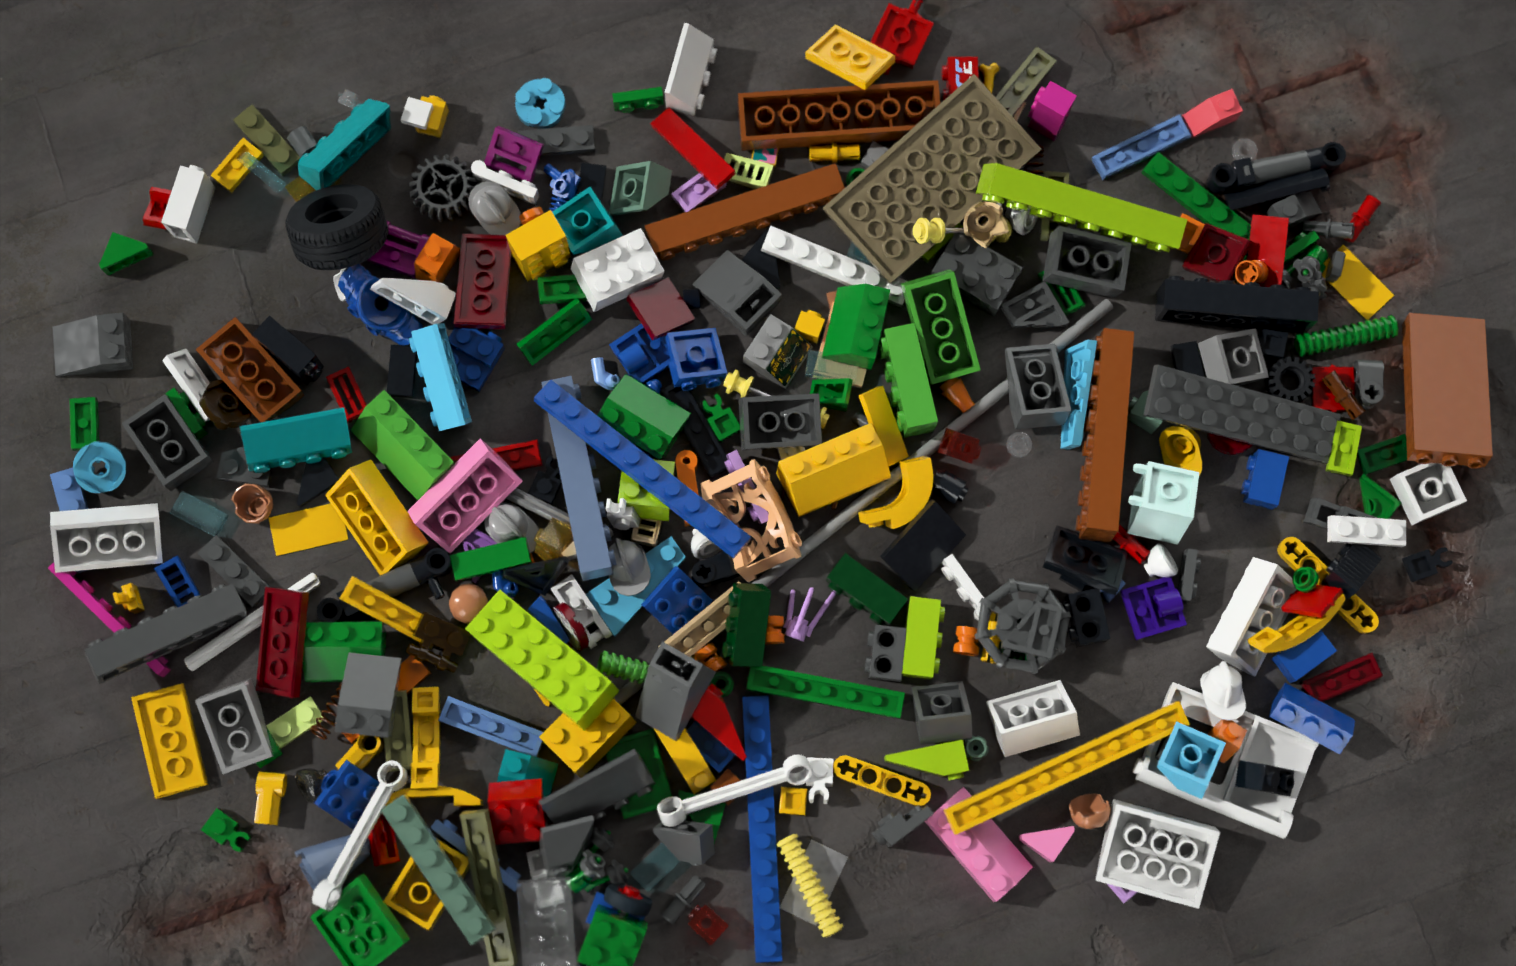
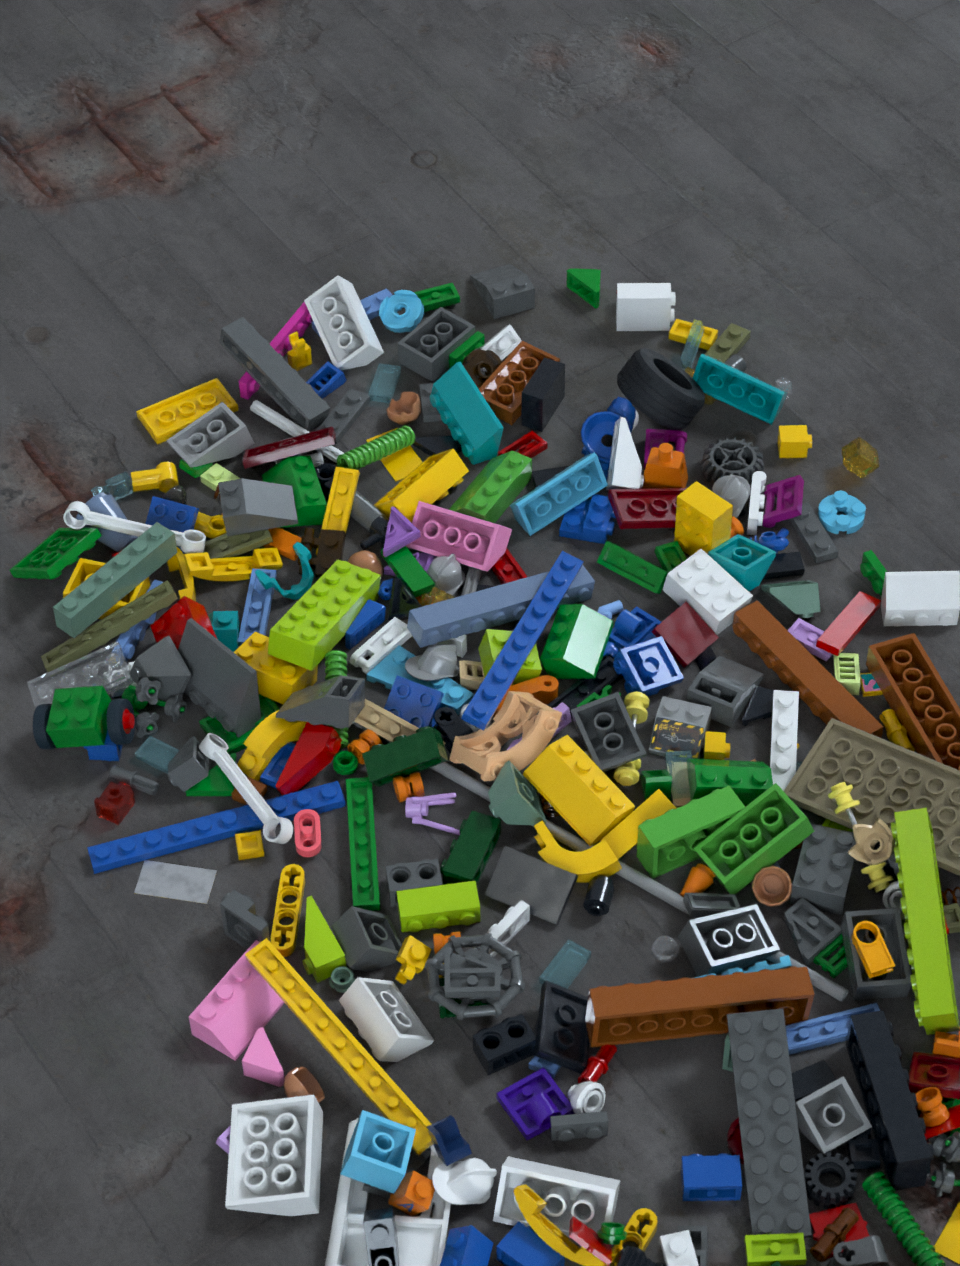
camera: 80 degrees right, 30 degrees down
(223, 828) = (121, 459): green plate -> none
(272, 840) = (117, 486): none -> clear light blue plate
(313, 549) = (377, 448): none -> bright green piece
(417, 113) = (788, 423): white tile -> none
(446, 555) = (399, 532): none -> medium lavender tile
(474, 679) = (296, 590): none -> teal helmet
(479, 58) = (860, 457): none -> clear yellow brick
(573, 629) = (362, 632): dark red tile -> none
(622, 516) = (477, 643): white plate -> none
(798, 741) = (307, 835): none -> coral plate
(810, 885) = (170, 872): light yellow piece -> none
(821, 777) = (276, 855): white plate -> none
(827, 532) = (515, 798): none -> sand green slope
(952, 443) = (649, 900): clear red brick -> none
(970, 677) = (413, 957): none -> yellow plate
(987, 326) = (772, 886): none -> nougat hair
(988, 387) = (708, 904): none -> dark grey tile
(1013, 539) = (566, 964): none -> clear light blue tile
(1103, 265) = (873, 955): none -> light orange piece
(1139, 319) = (822, 1030): none -> medium blue tile
(1162, 502) = (644, 1066): light aqua container -> none
(1181, 448) = (712, 1091): yellow piece -> none
(1192, 694) = (448, 1141): none -> dark blue panel

